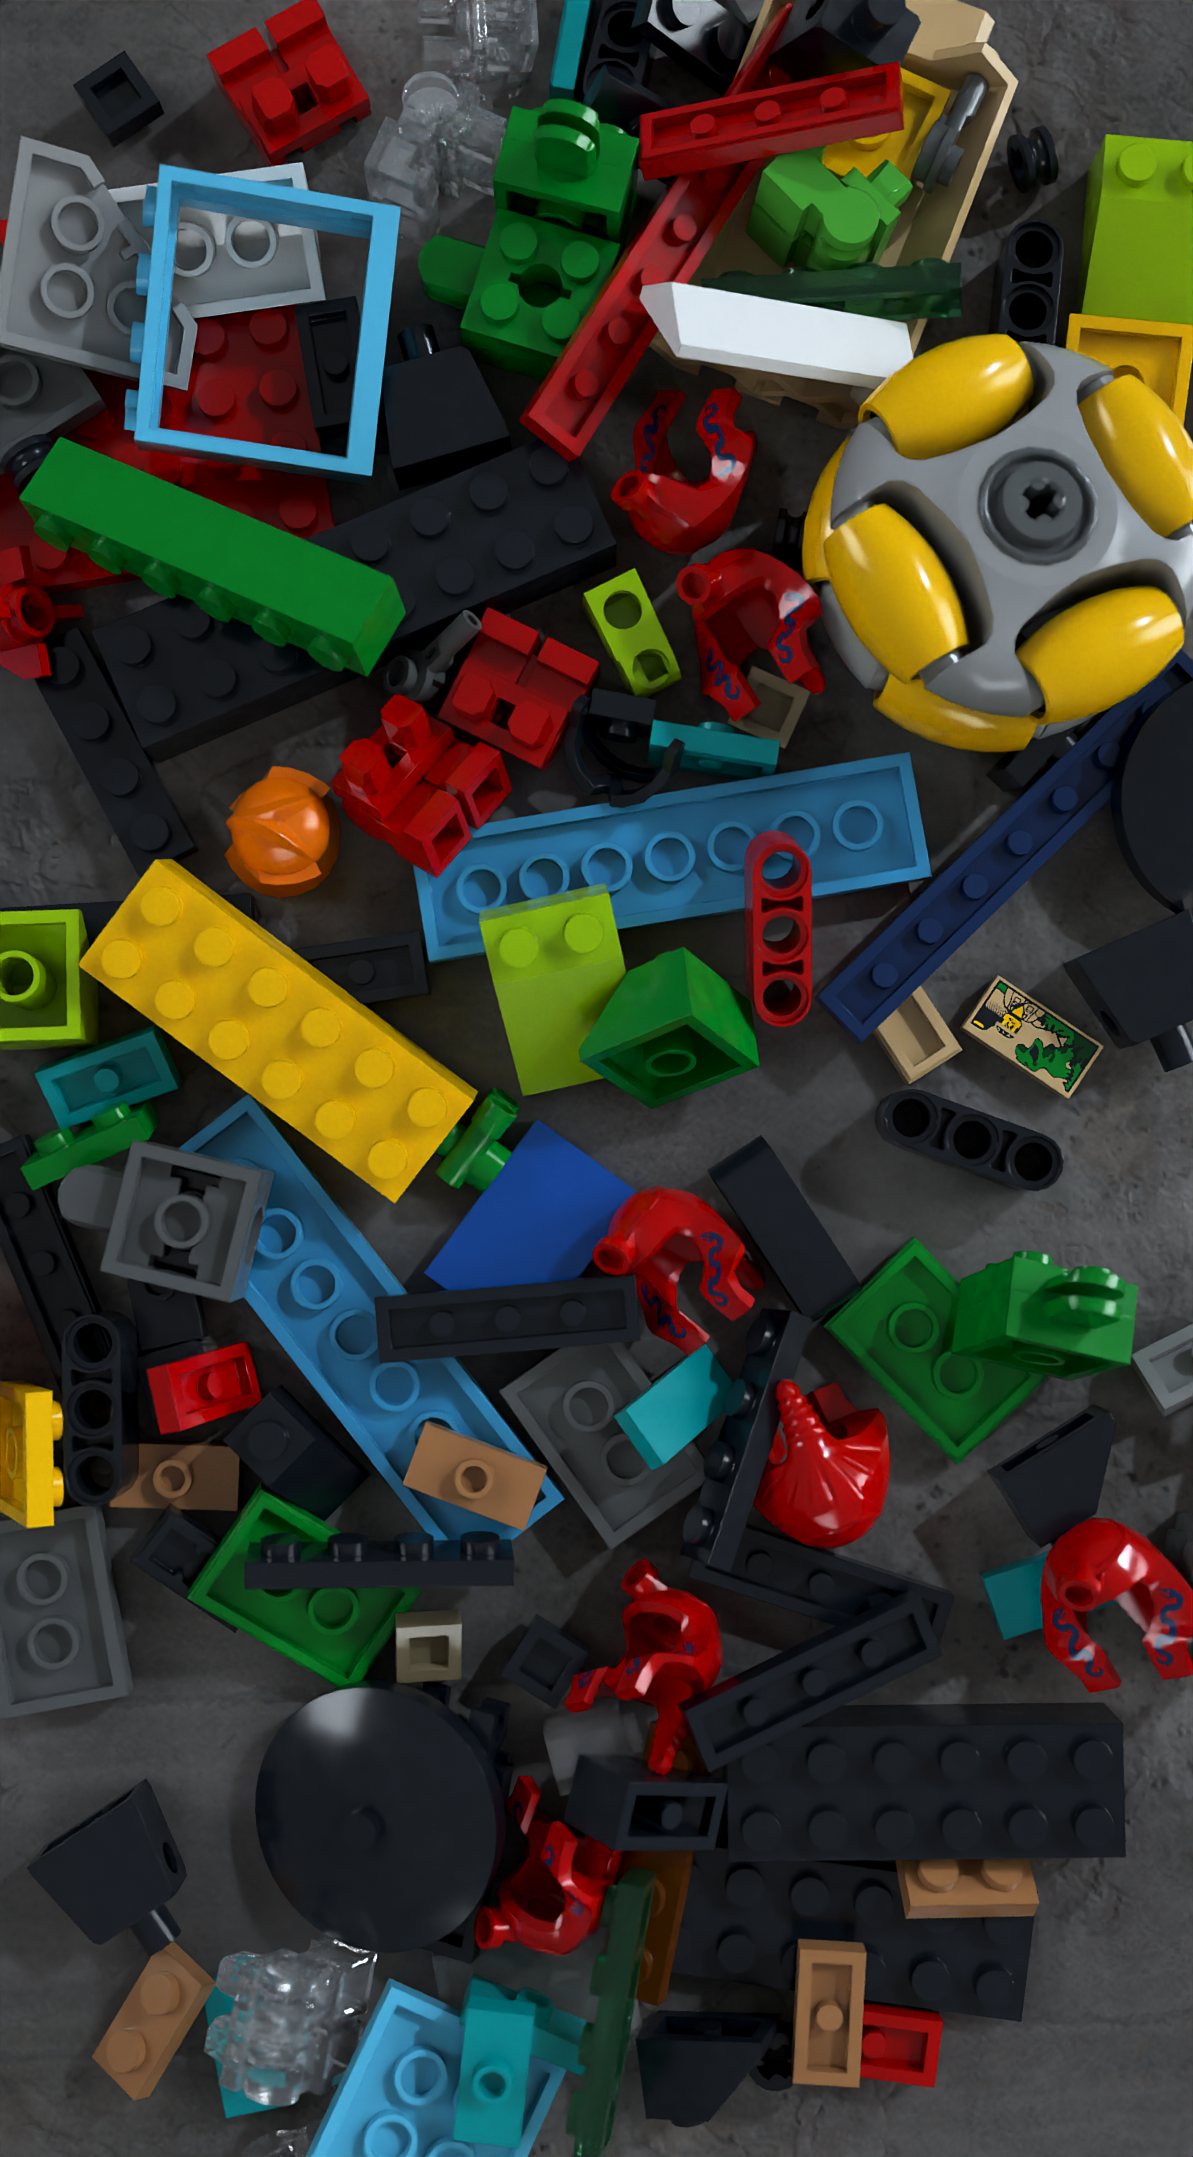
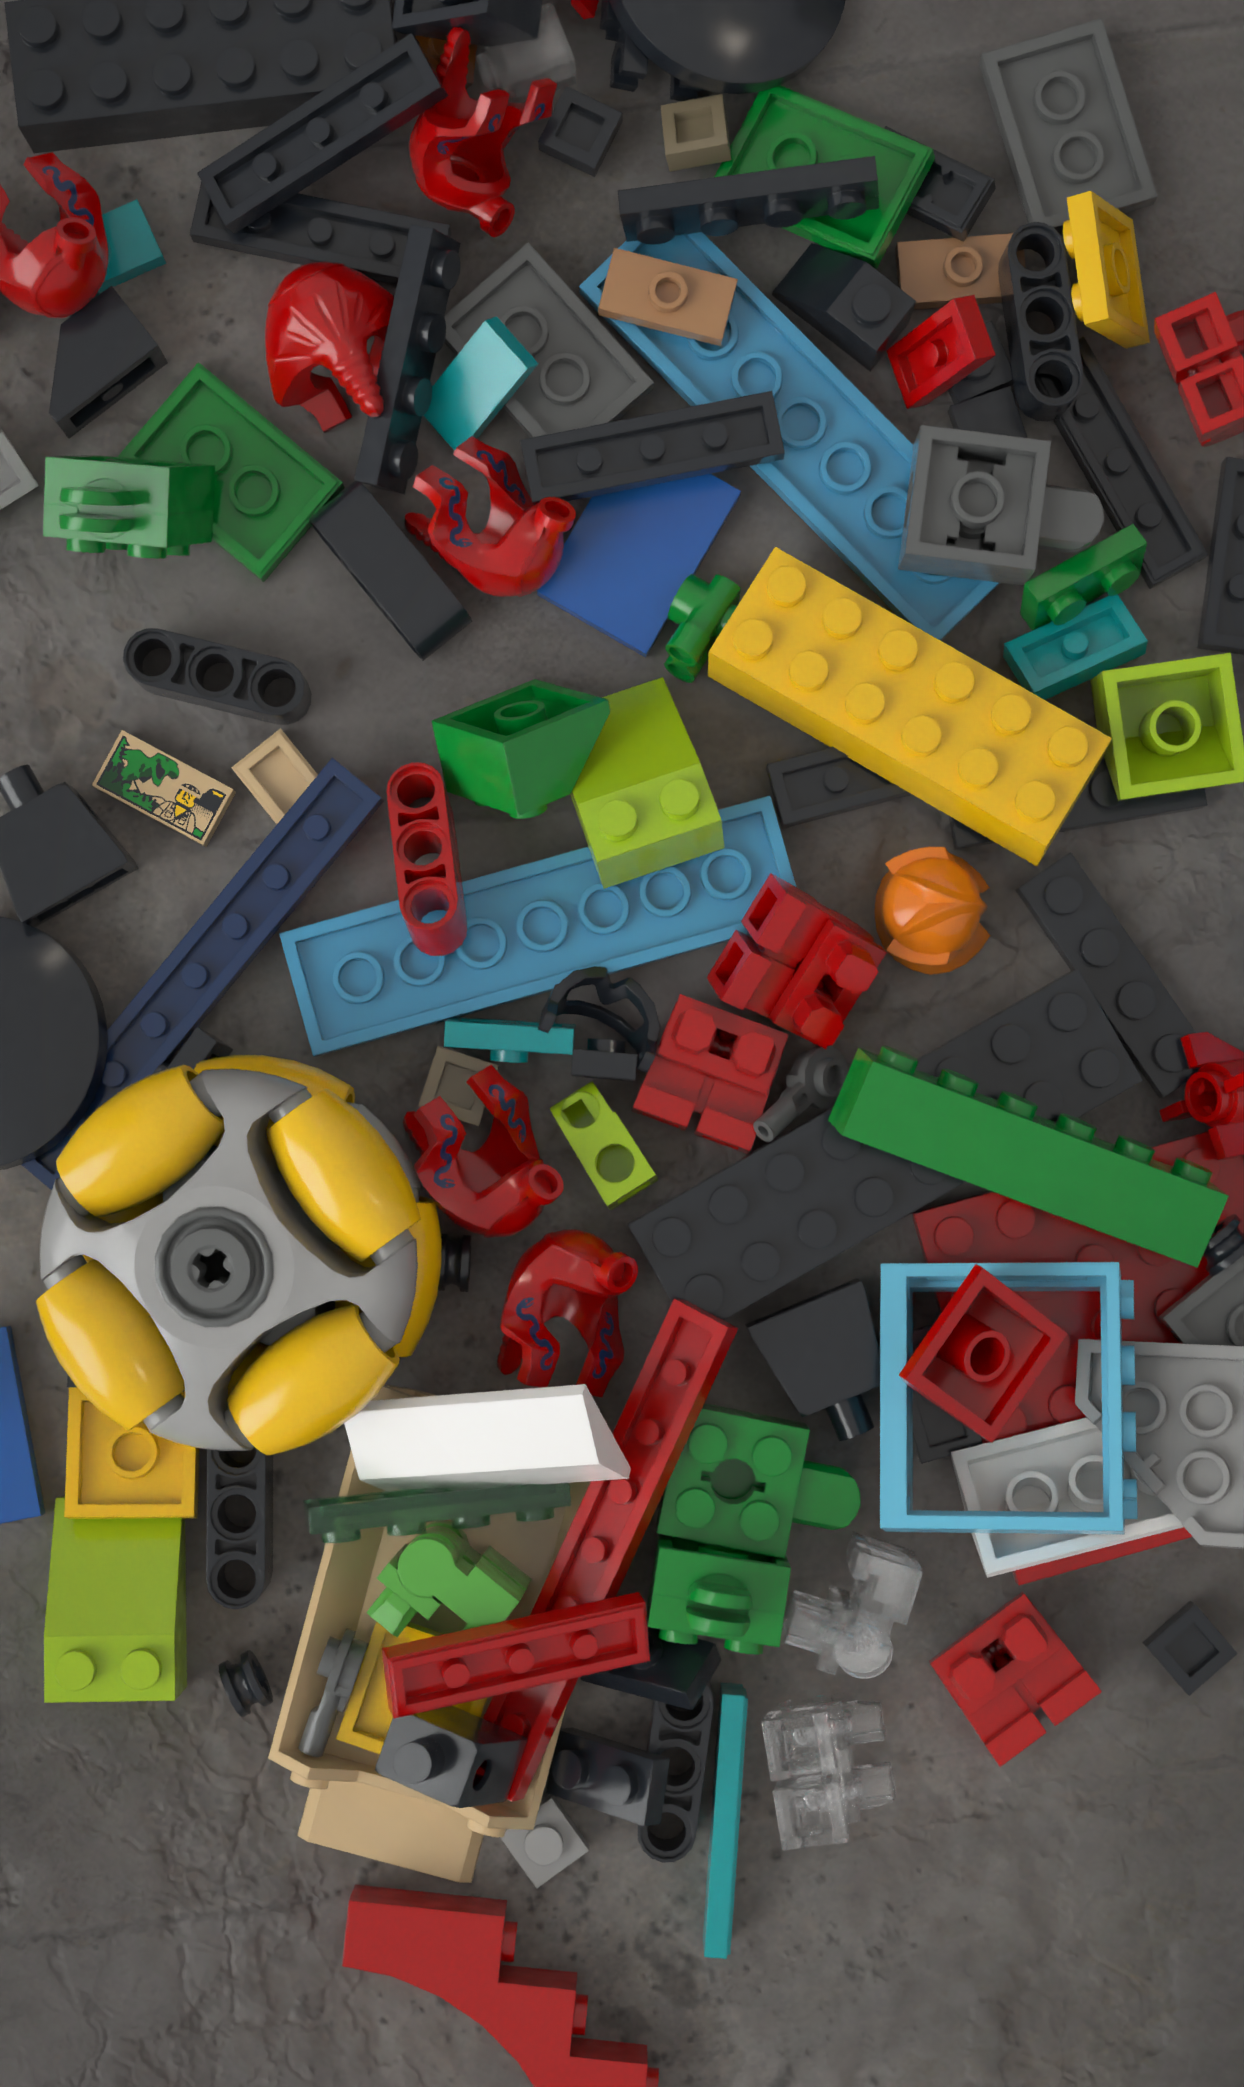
camera: 175 degrees right, 0 degrees up
(280, 358) = (982, 1354): none -> red slope

